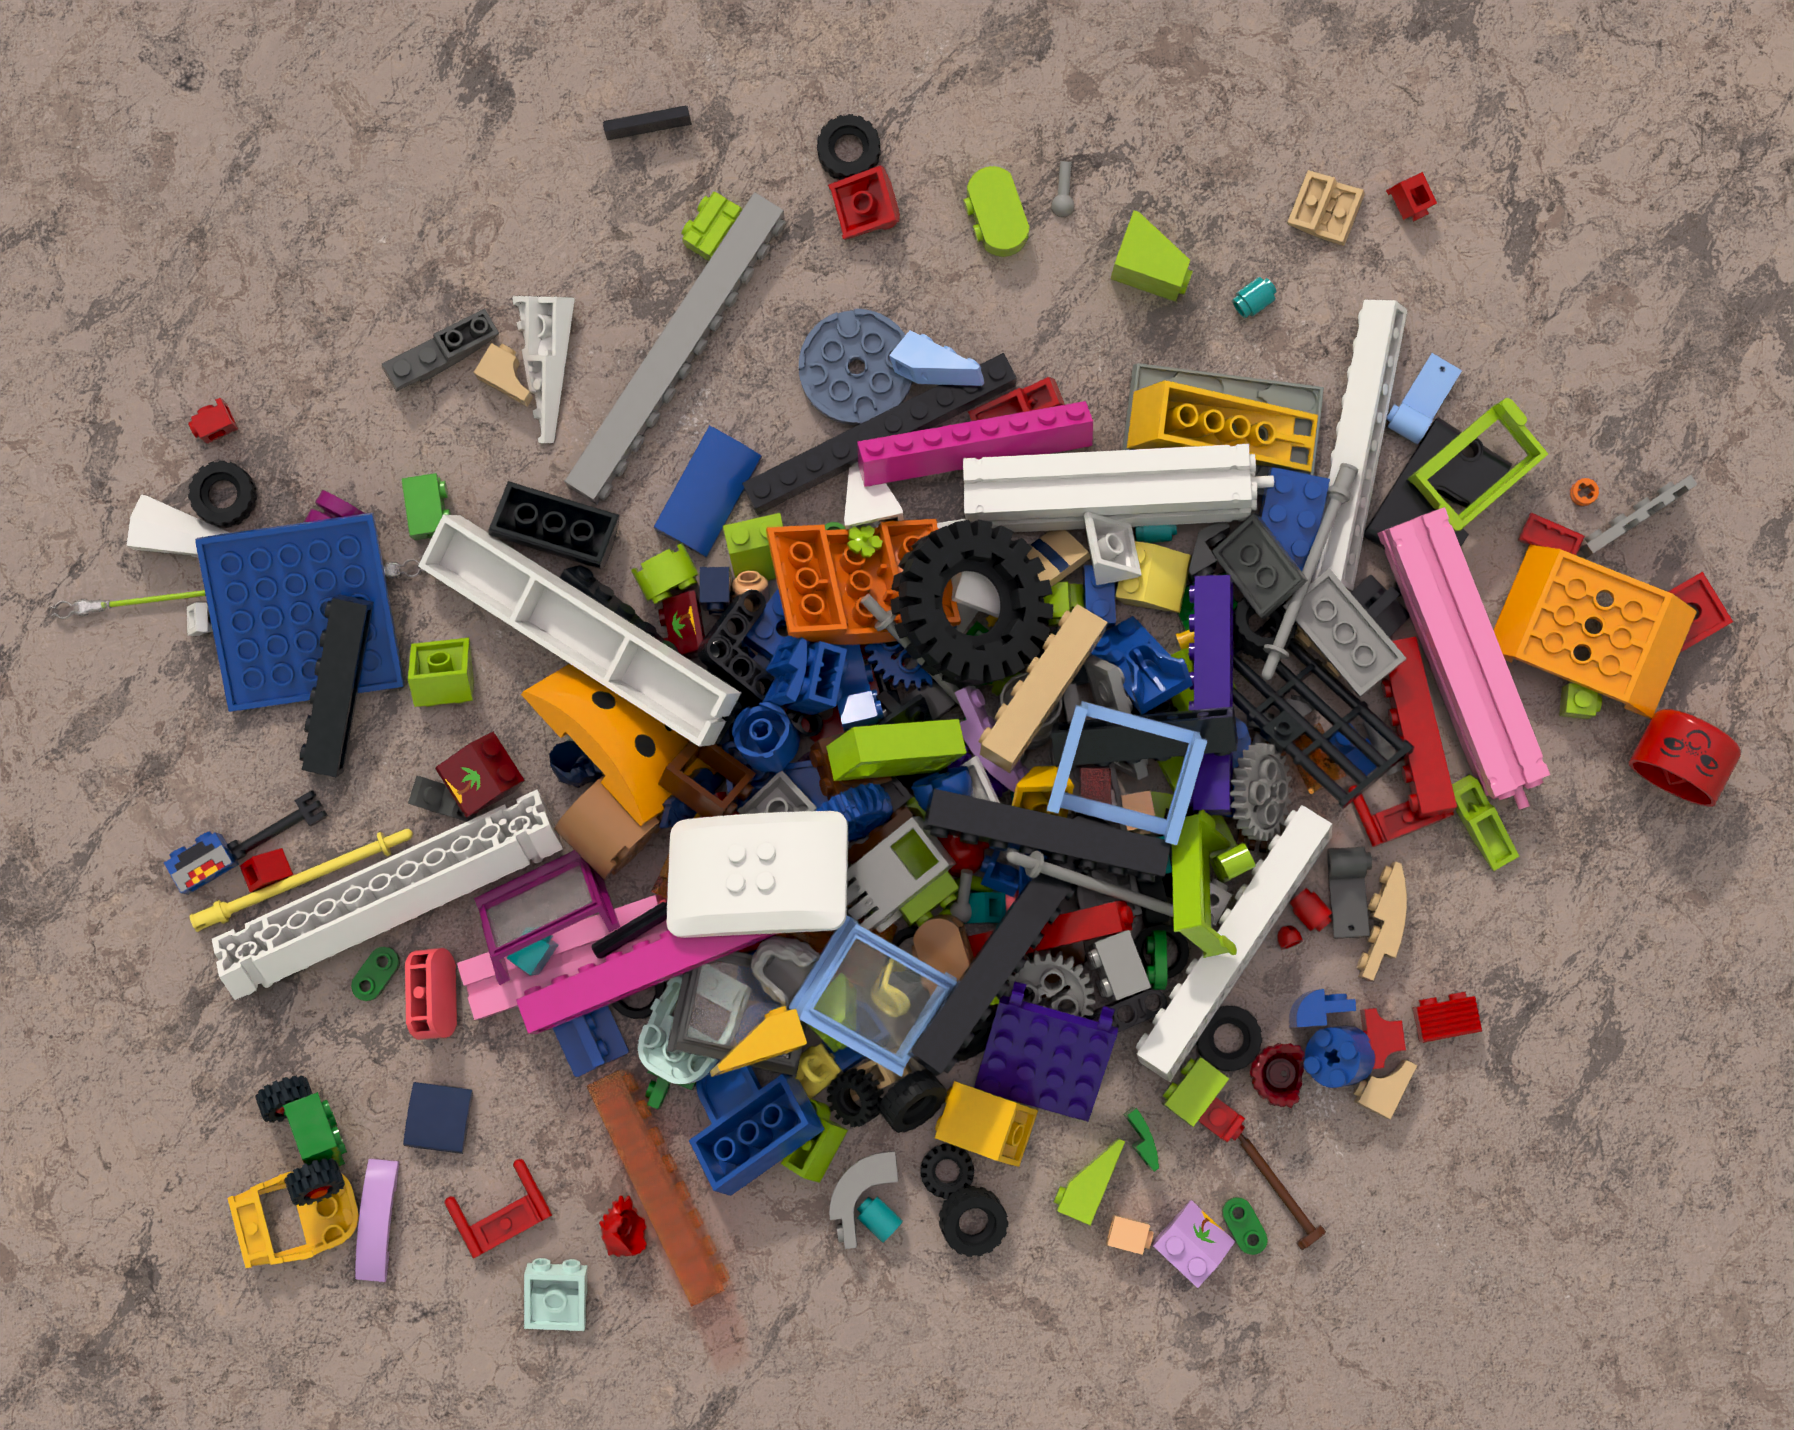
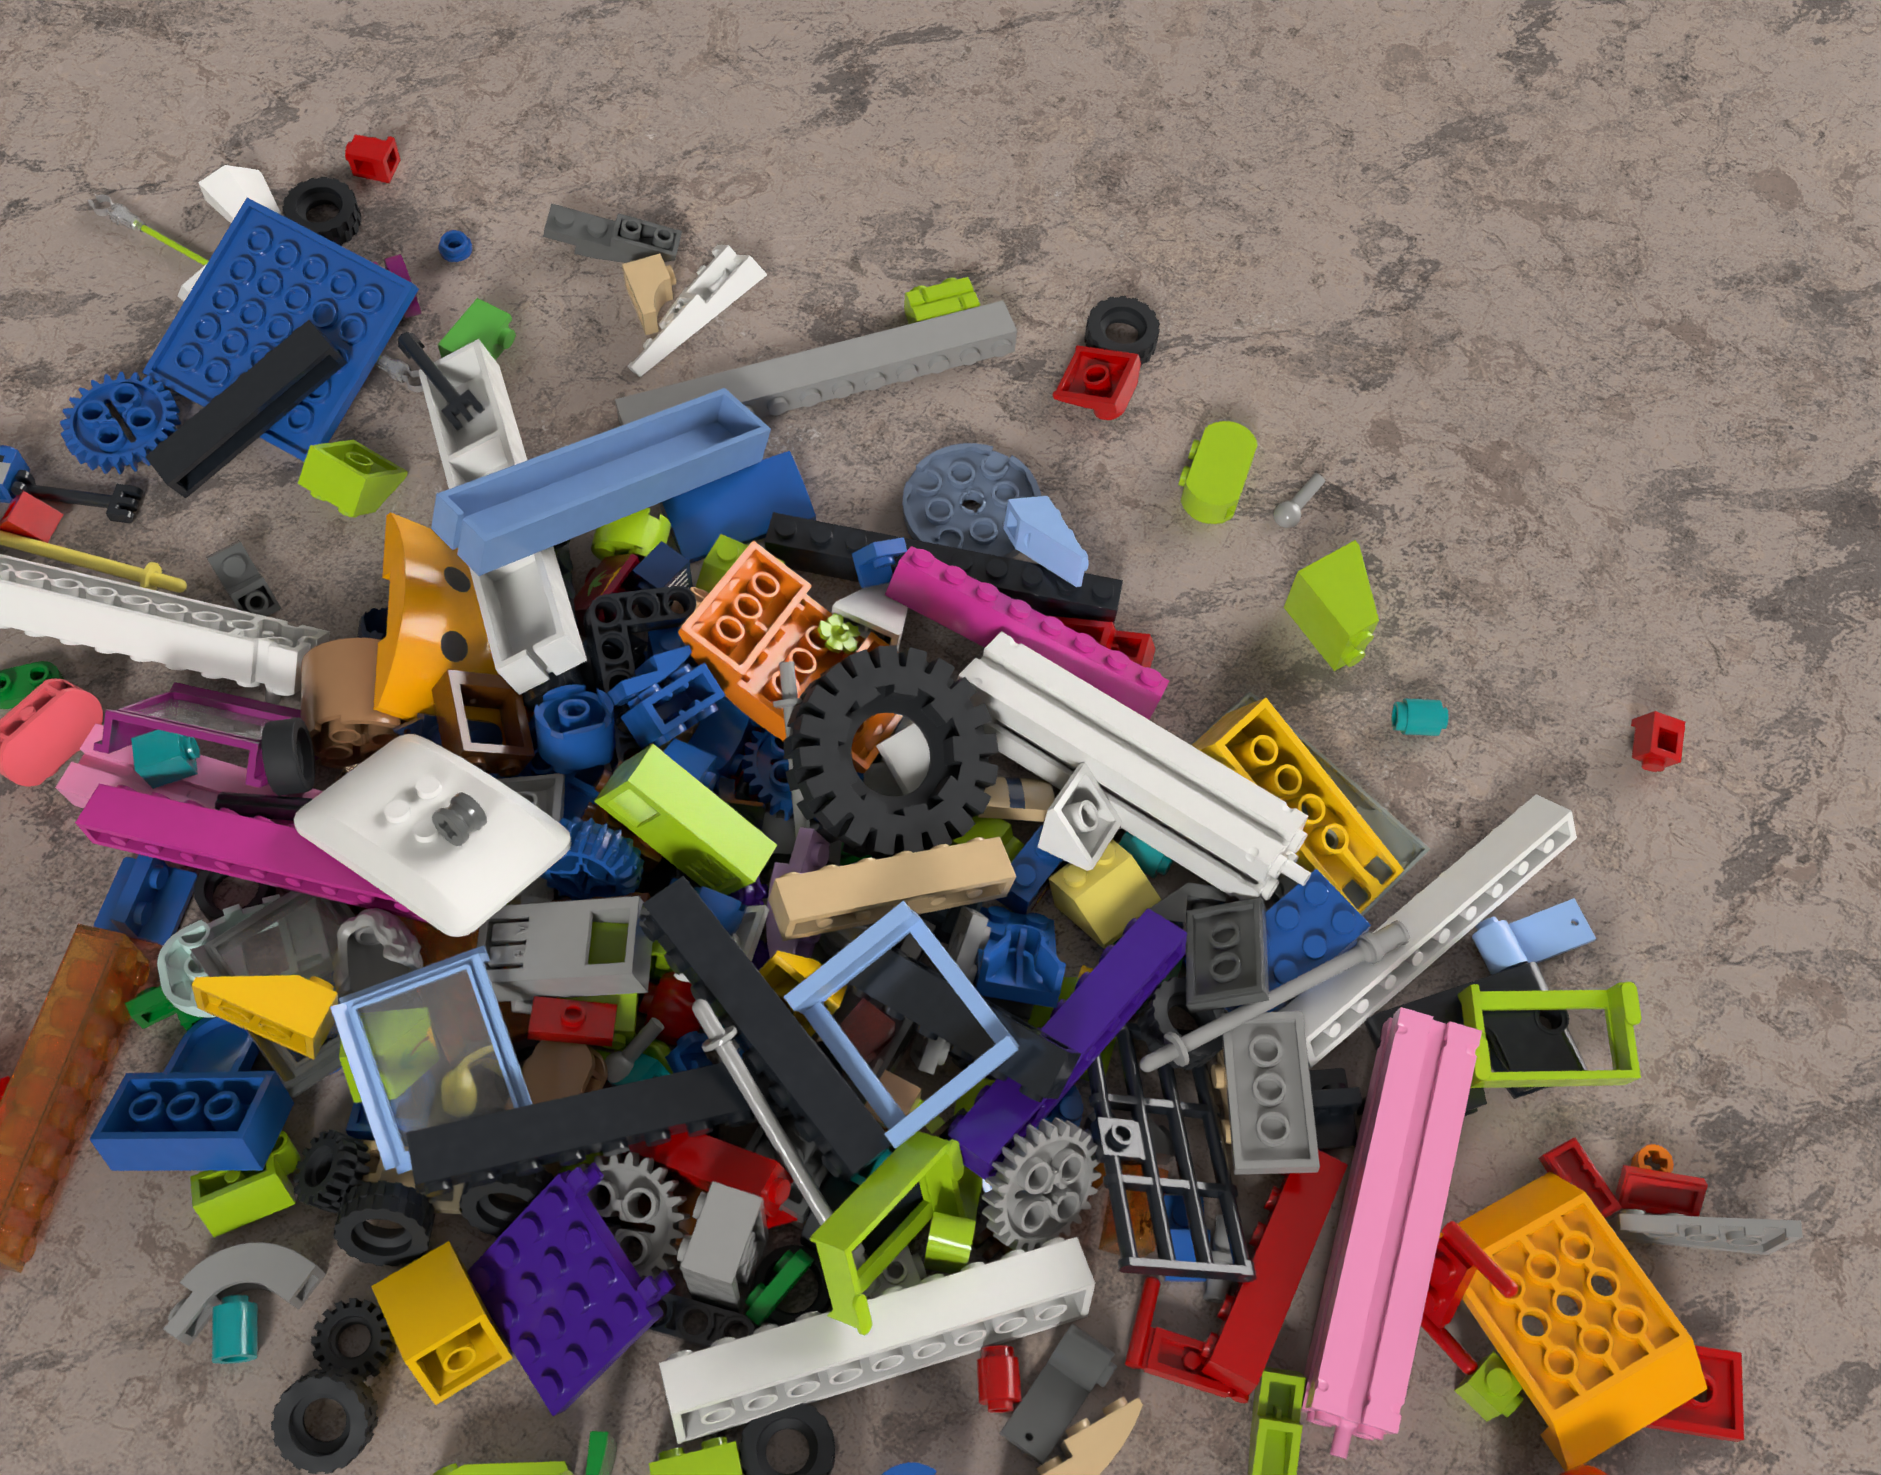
camera: 30 degrees right, 20 degrees down
(259, 732) = (97, 436): none -> blue gear
(332, 439) = (455, 246): none -> blue plate
(470, 570) = (413, 348): none -> black hinge
(480, 774) = (292, 579): dark red slope -> none
(555, 525) = (556, 408): black brick -> none
(618, 895) = (288, 756): none -> black tyre
(640, 561) = (597, 480): none -> medium blue piece
(647, 122) = (957, 196): black tile -> none
(782, 861) = (459, 819): none -> dark grey wheel
(816, 1070) = (318, 1108): light yellow piece -> none
(844, 469) = (874, 561): none -> blue bracket
(925, 912) = (572, 1021): none -> red plate
(1288, 937) = (949, 1391): red hinge -> none
(1326, 208) = (1555, 693): tan slope -> none
(1519, 659) = (1452, 1271): none -> red plate
(1600, 508) = (1660, 1191): none -> red tile

